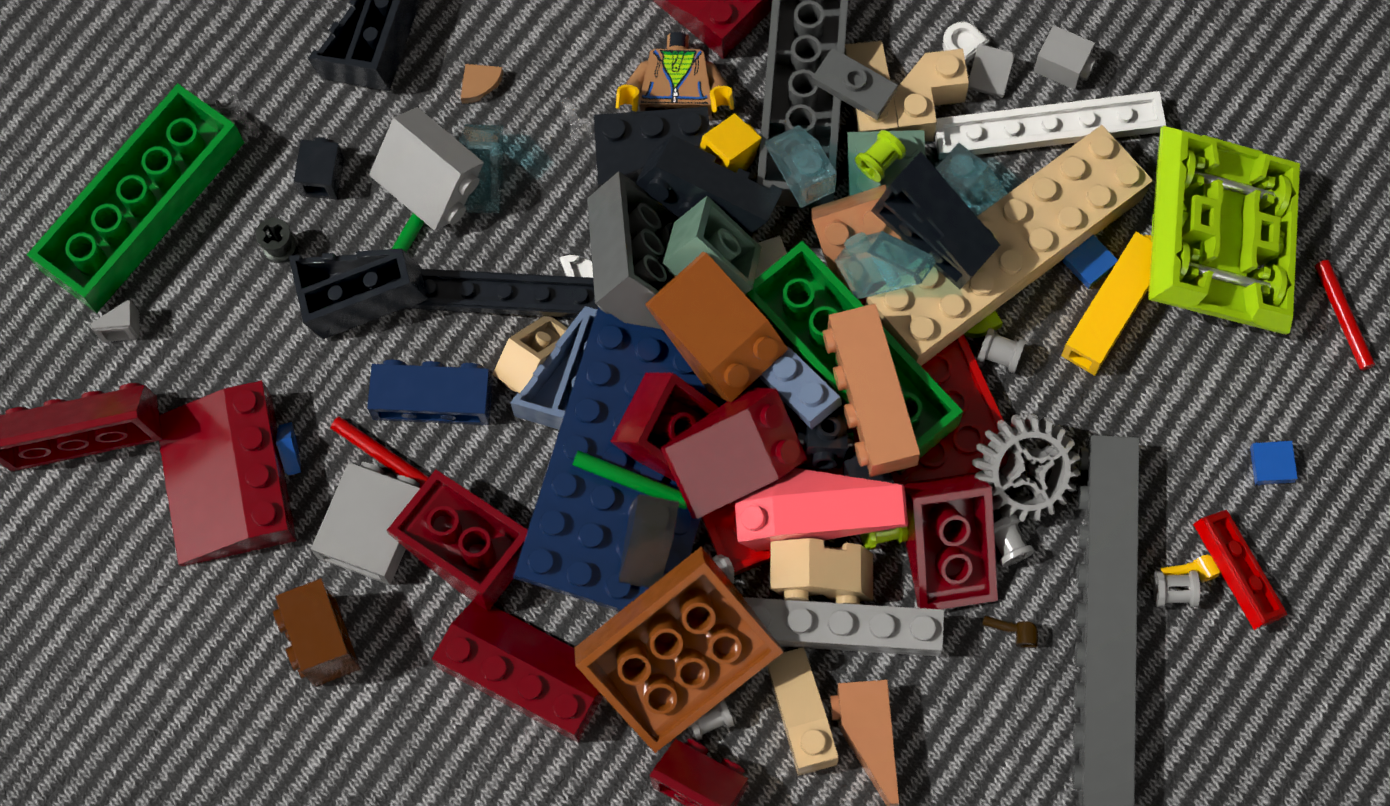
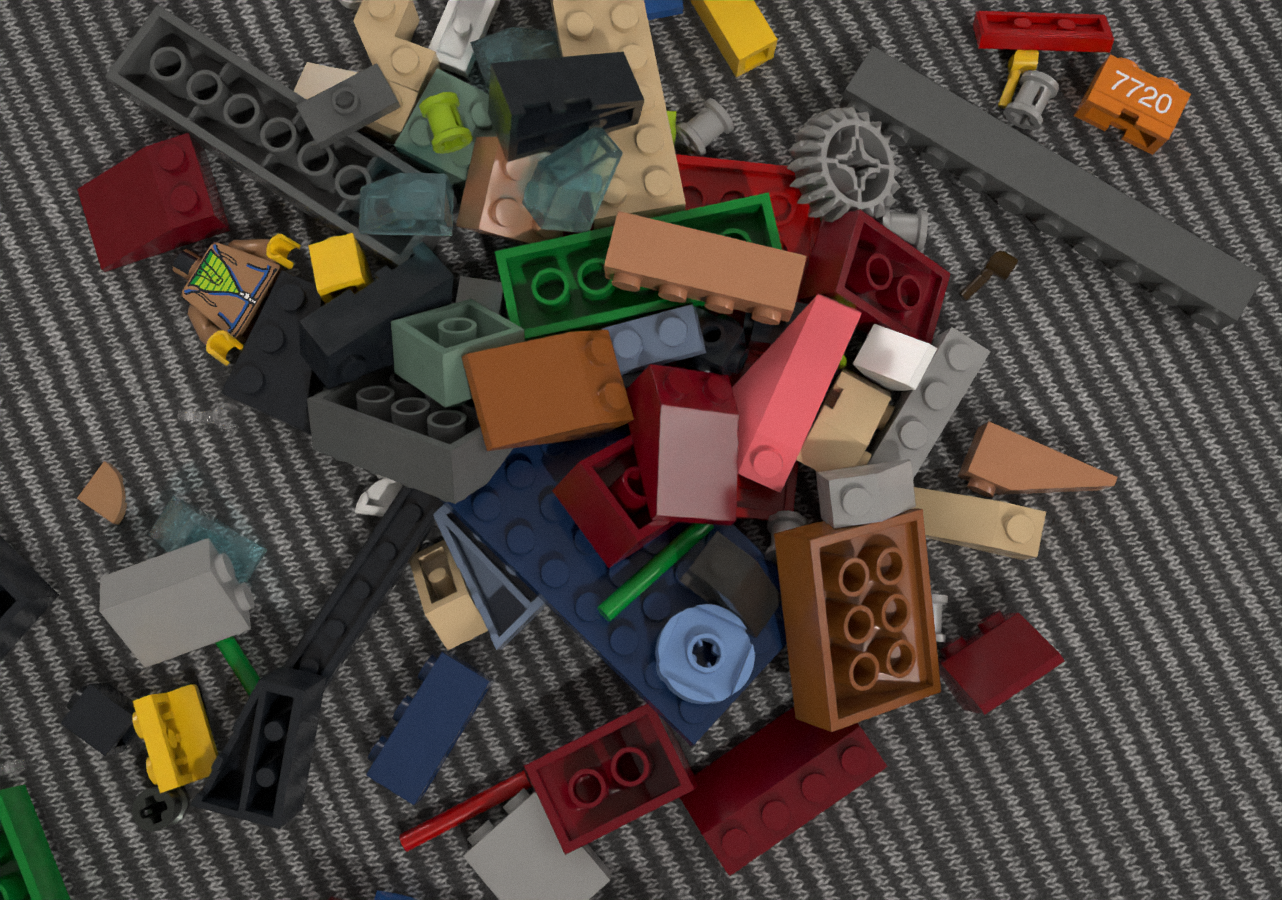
camera: 65 degrees left, 10 degrees up
(330, 221) = (175, 737): none -> yellow bracket
(601, 561) = (730, 644): none -> medium blue plate
(772, 603) = (865, 493): none -> light grey slope
(892, 574) = (893, 359): none -> white slope
(1224, 670) = (1133, 102): none -> orange brick

